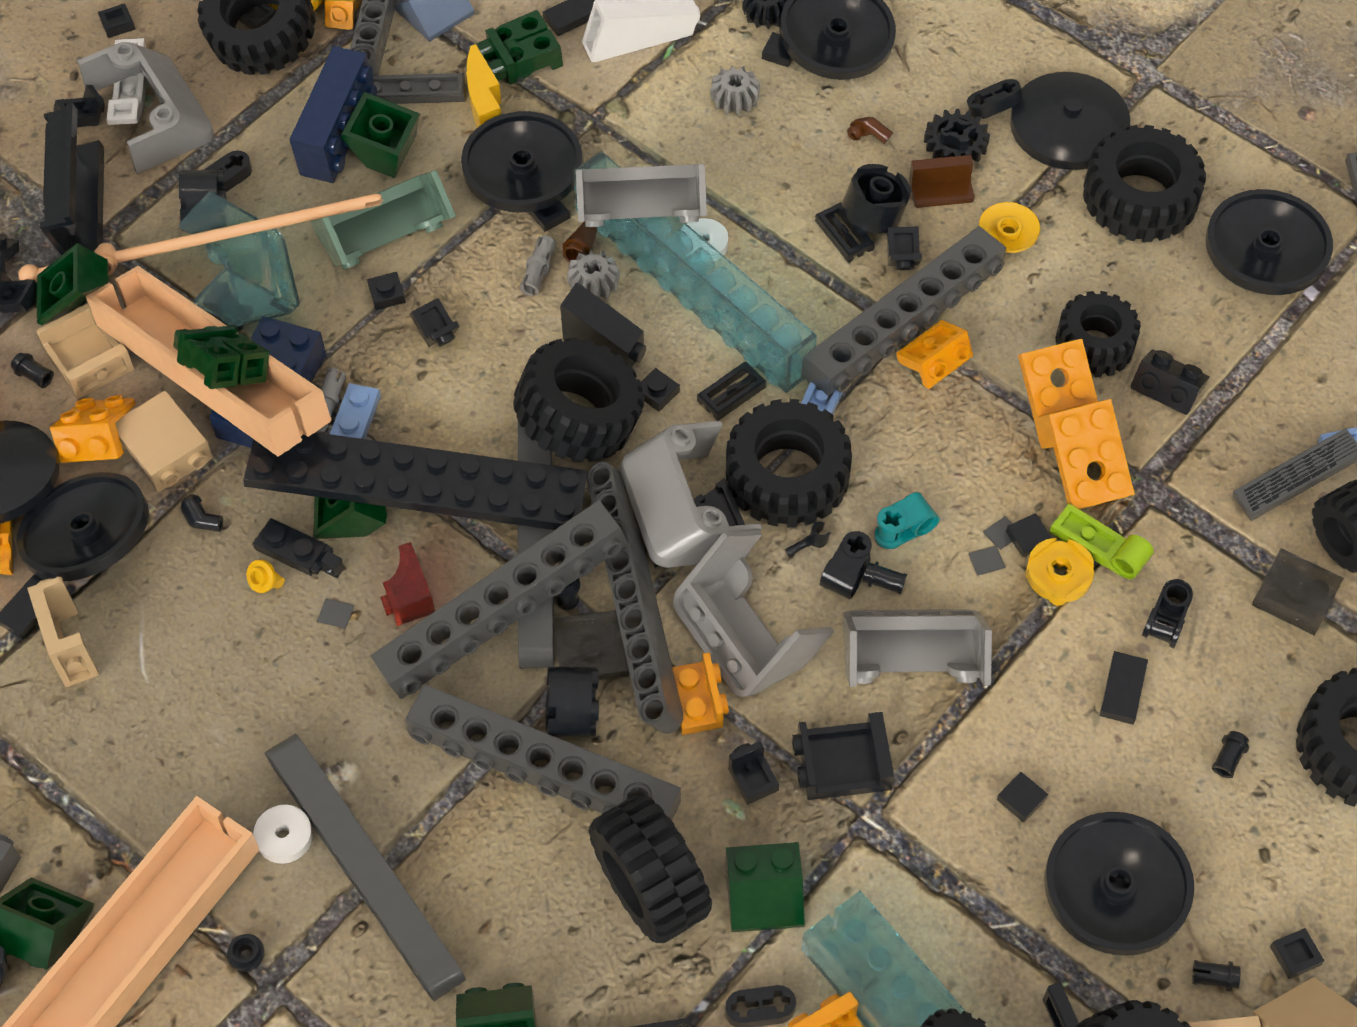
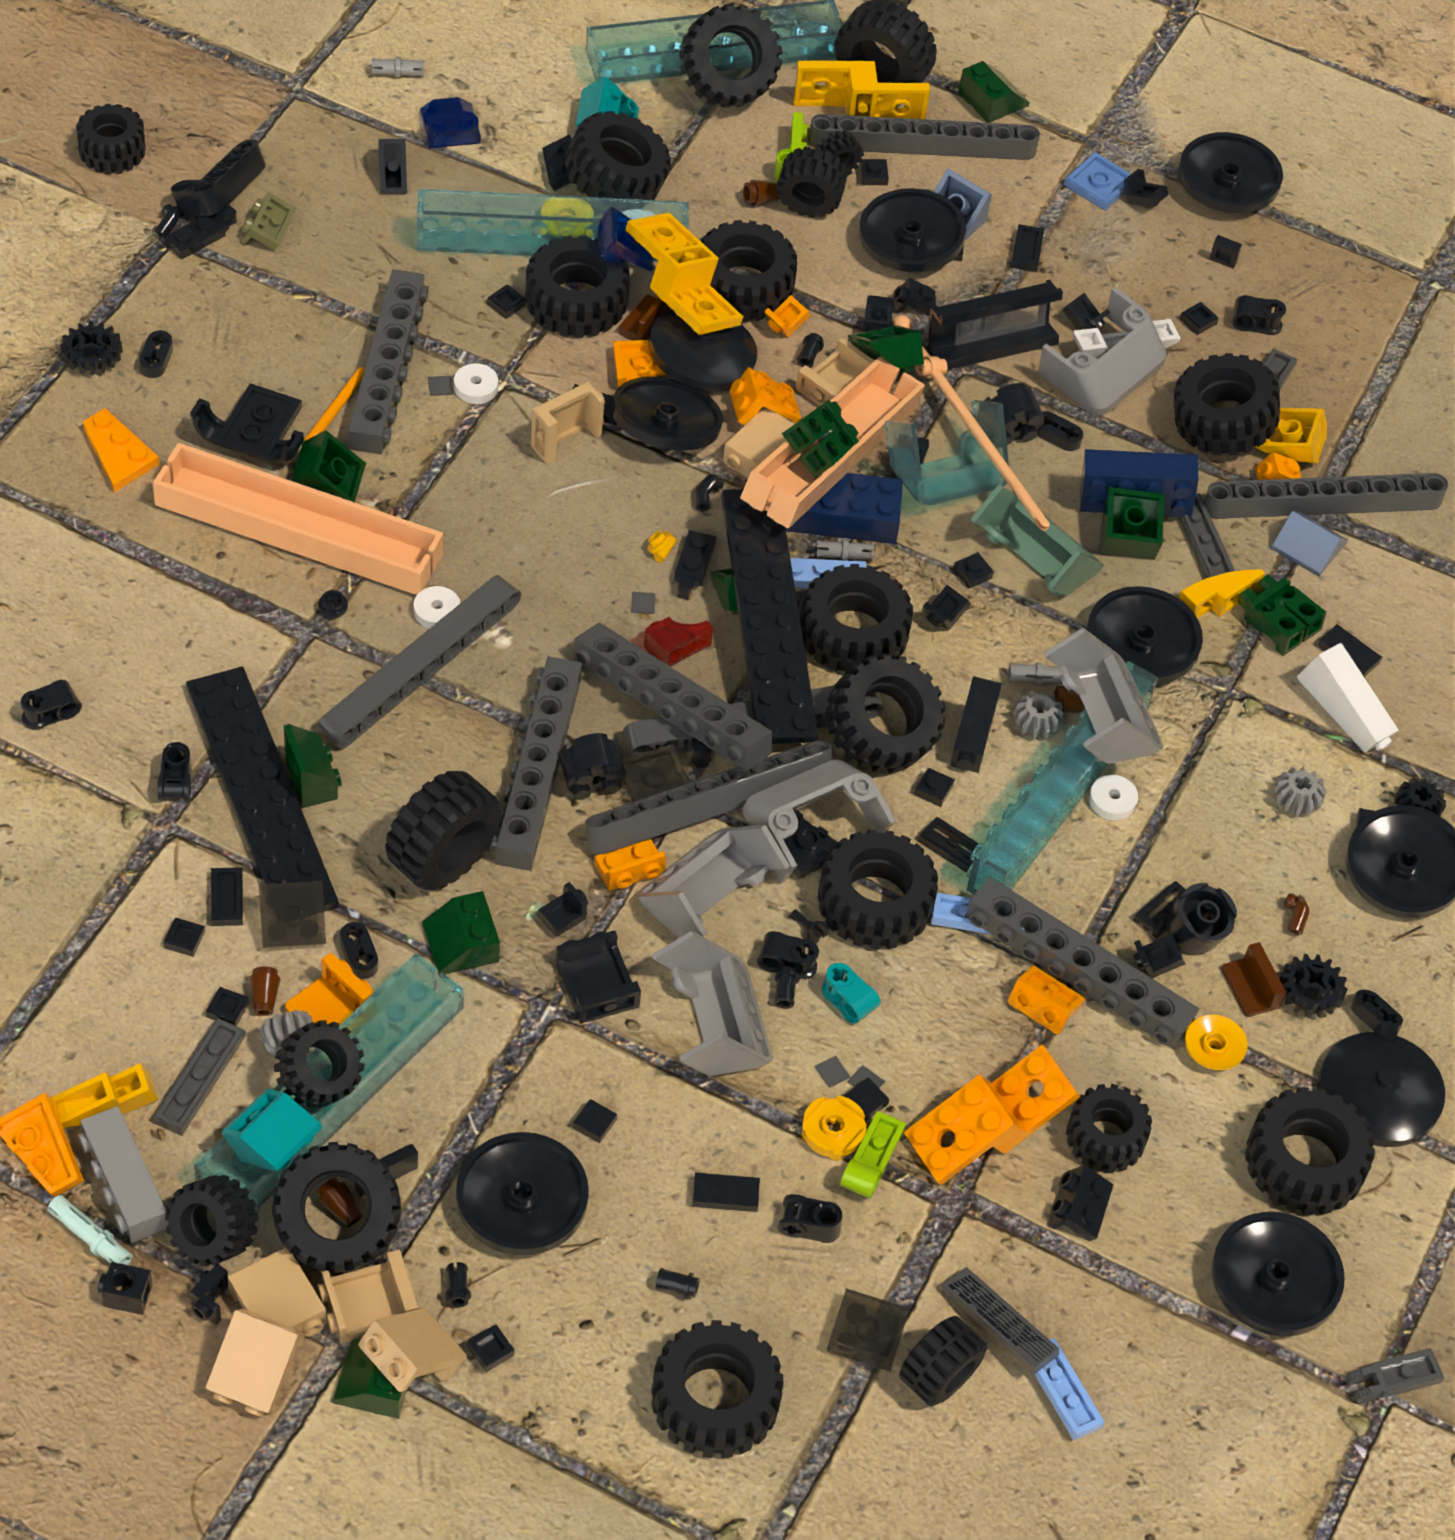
camera: 70 degrees right, 5 degrees down
(433, 371) = (861, 591): none -> black tyre

